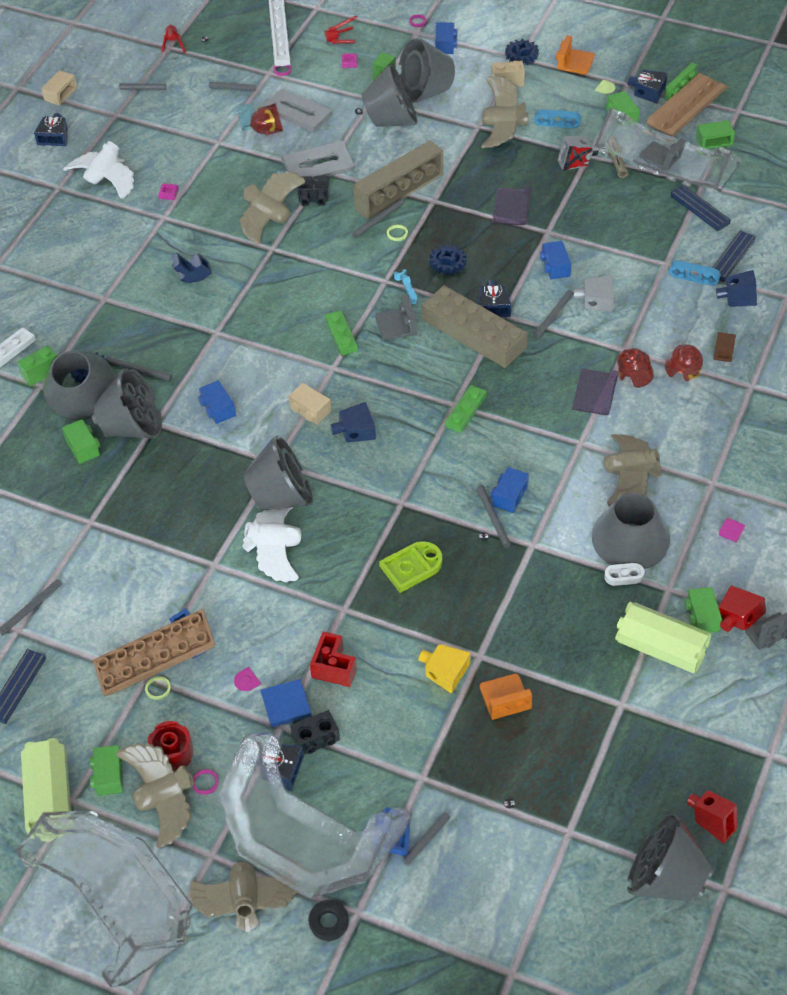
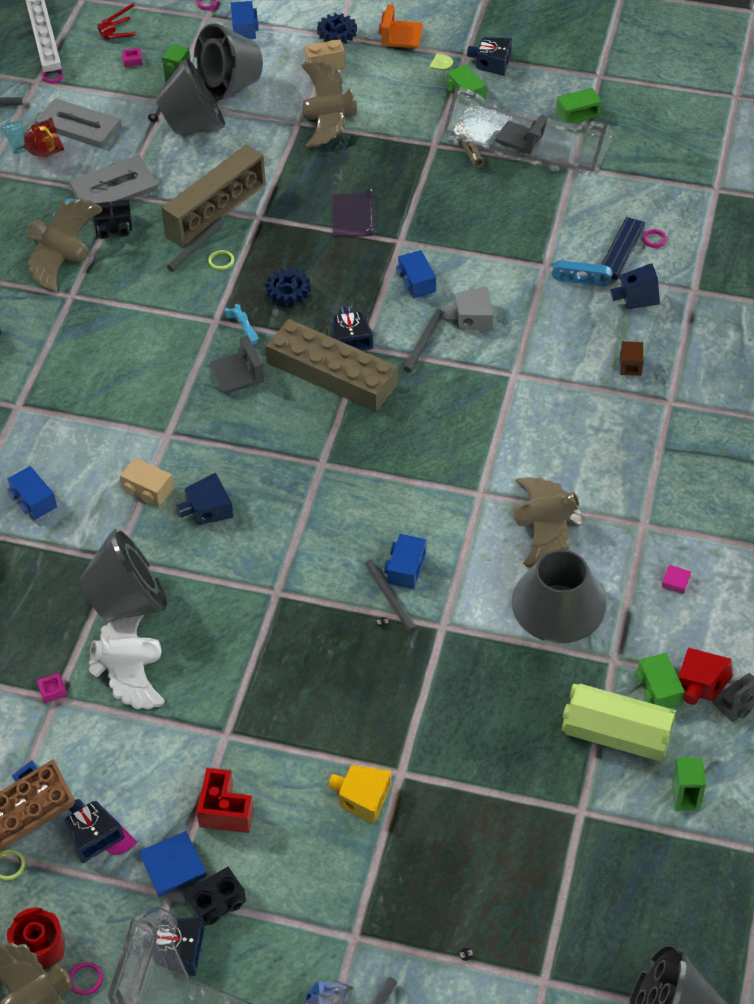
camera: 10 degrees left, 0 degrees up
(211, 556) = (51, 688): none -> dark pink tile
(226, 668) = (92, 829): none -> torso
(341, 333) = (171, 390): bright green plate -> none
(412, 565) = (300, 669): lime tile -> none
(465, 408) = (336, 467): bright green plate -> none
(505, 696) = (441, 819): orange bracket -> none
(556, 113) = (405, 99): dark azure beam -> none
(576, 152) = (420, 143): torso -> none
(595, 391) = (488, 428): clear purple piece -> none
(623, 573) = (558, 647): white plate -> none
(636, 365) = (533, 392): clear red helmet -> none
(681, 80) = (529, 47): bright green plate -> none
(686, 104) = (538, 74): medium nougat plate -> none
(686, 360) = (588, 379): clear red helmet -> none
(700, 208) = (575, 194): dark blue tile -> none
(712, 693) = (688, 783): none -> bright green brick
(715, 814) = (715, 934): red torso -> none
(761, 245) = (654, 245): none -> dark pink piece

